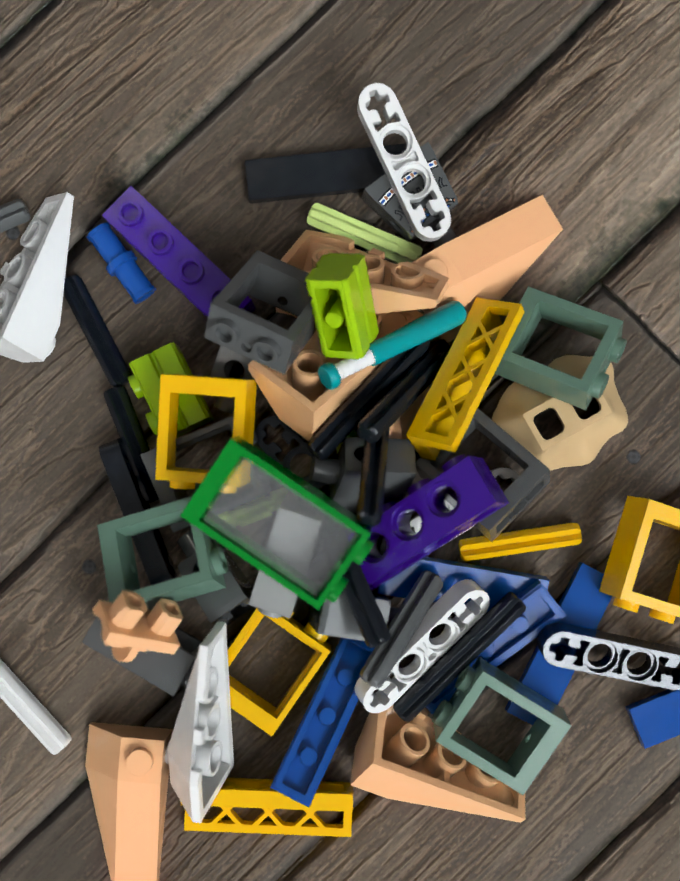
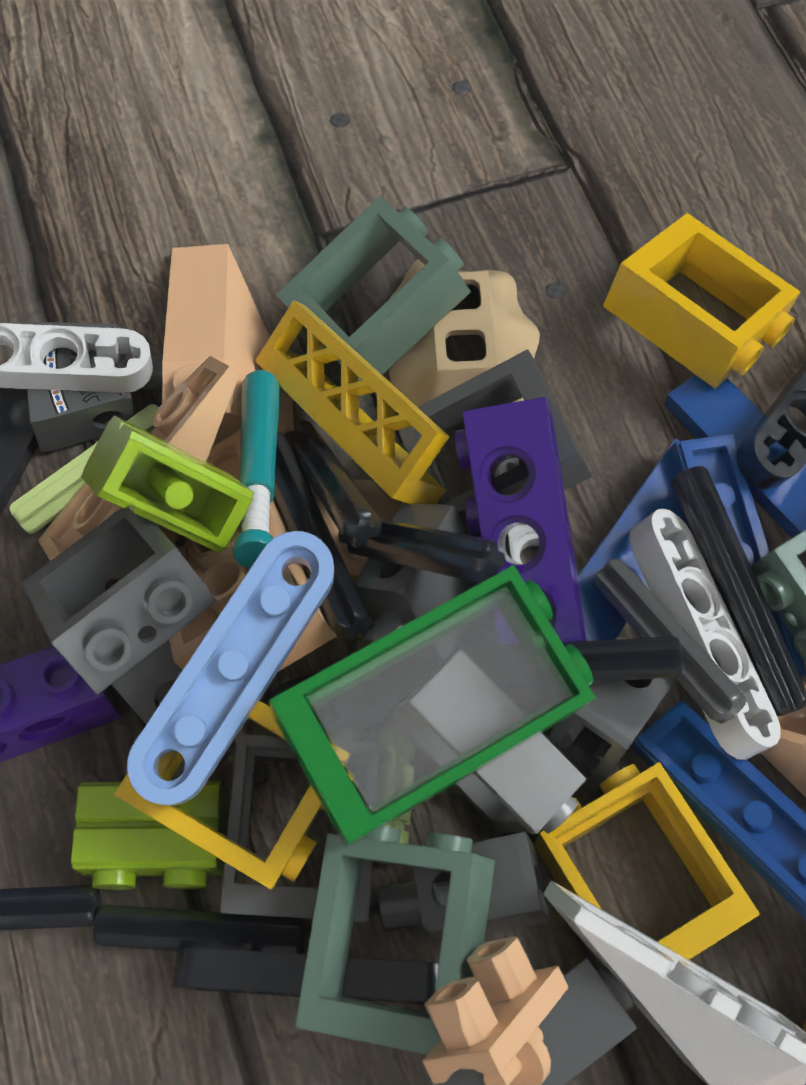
camera: 70 degrees left, 20 degrees down
(249, 405) = (231, 669): none -> light blue plate
(520, 541) = (605, 460): yellow axle -> none

